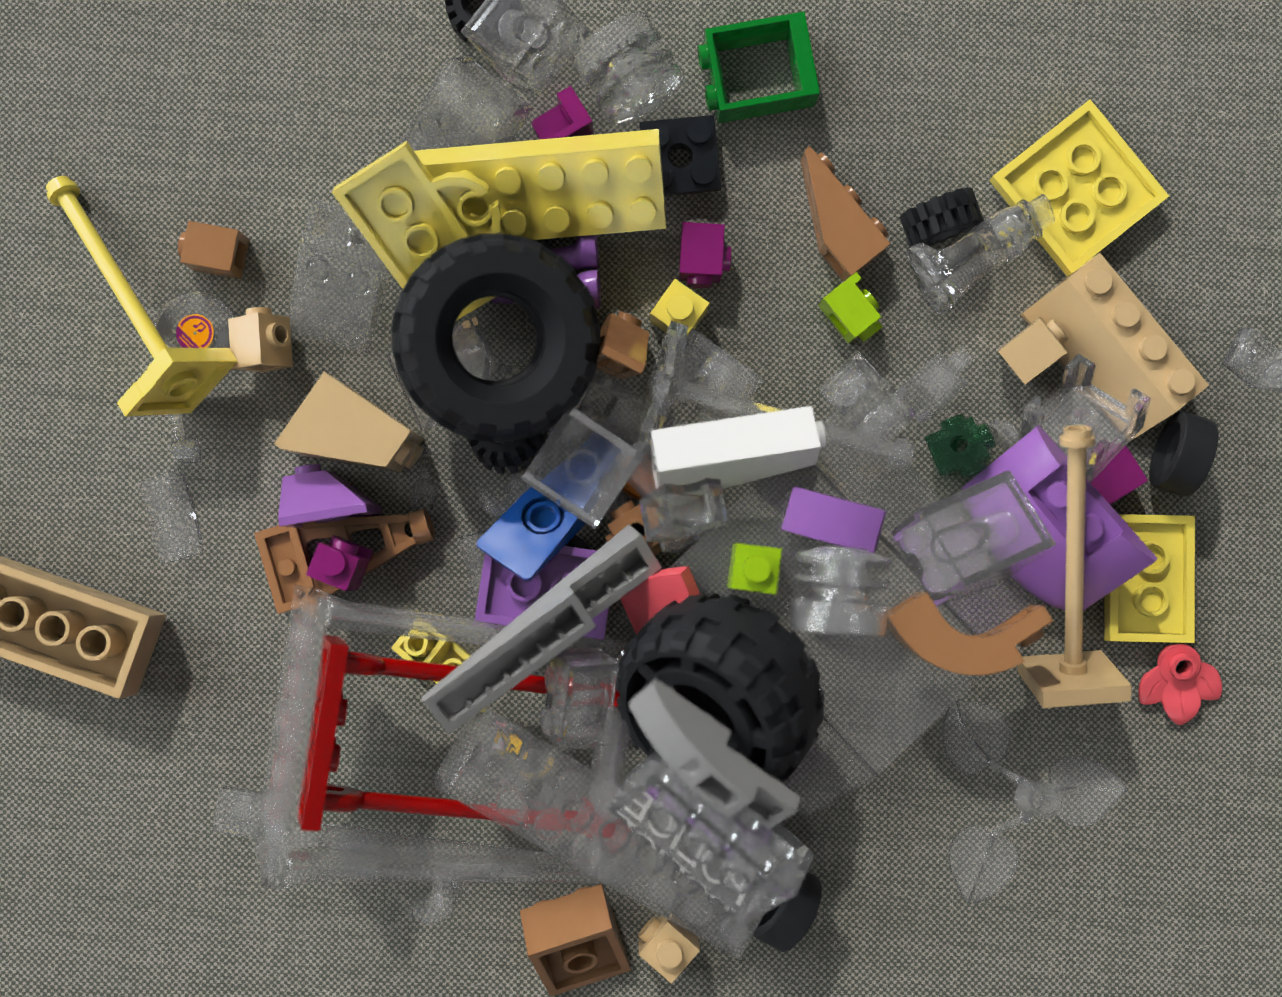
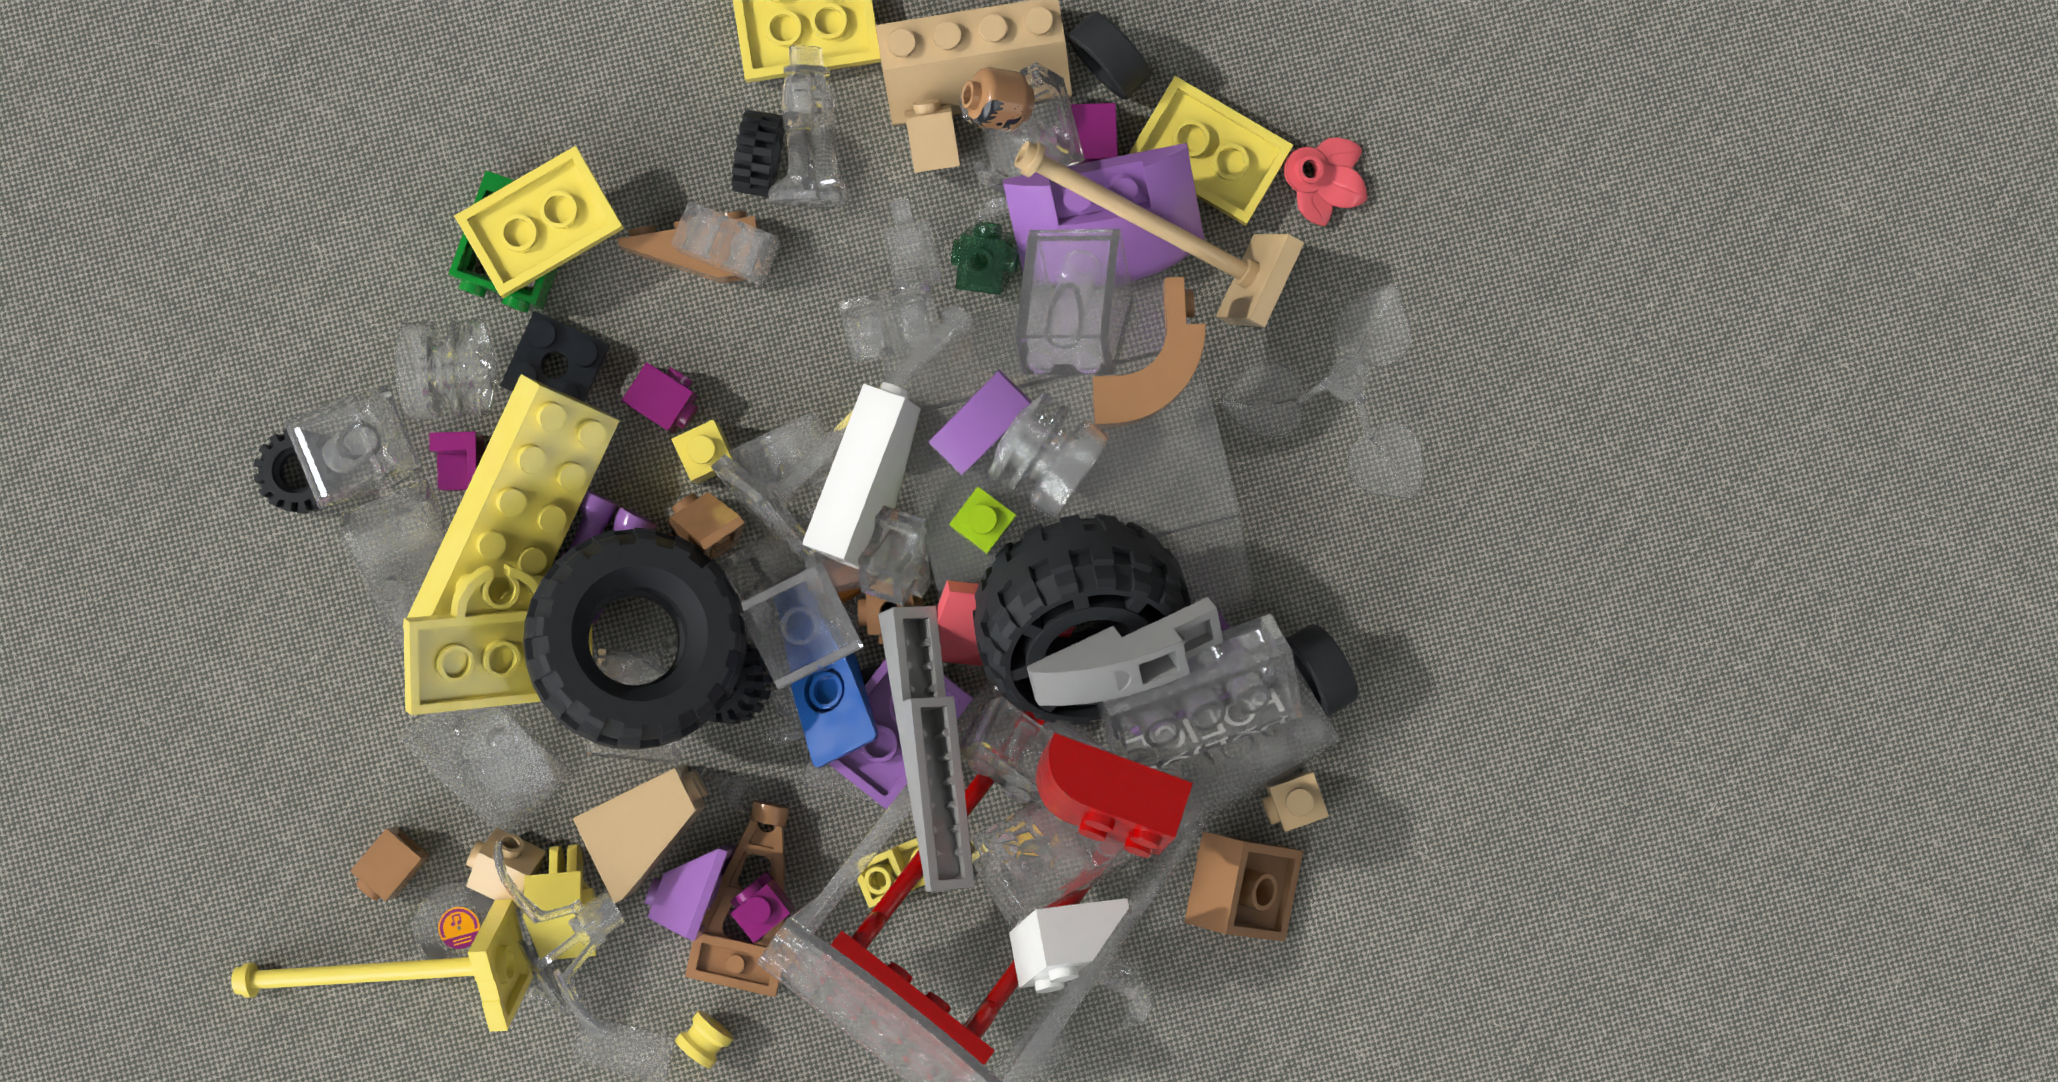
camera: 55 degrees left, 0 degrees up
(213, 576) = (704, 1039): none -> light yellow wheel
(243, 434) = (590, 923): none -> clear plant
(250, 404) = (553, 892): none -> light yellow brick
(439, 834) = (1061, 941): none -> white slope
(587, 811) = (1111, 795): none -> red brick
(788, 74) = (539, 222): none -> light yellow plate
(852, 310) = (798, 286): lime brick -> none
(857, 231) = (725, 243): none -> clear brick
(1101, 384) = (998, 99): none -> medium nougat head

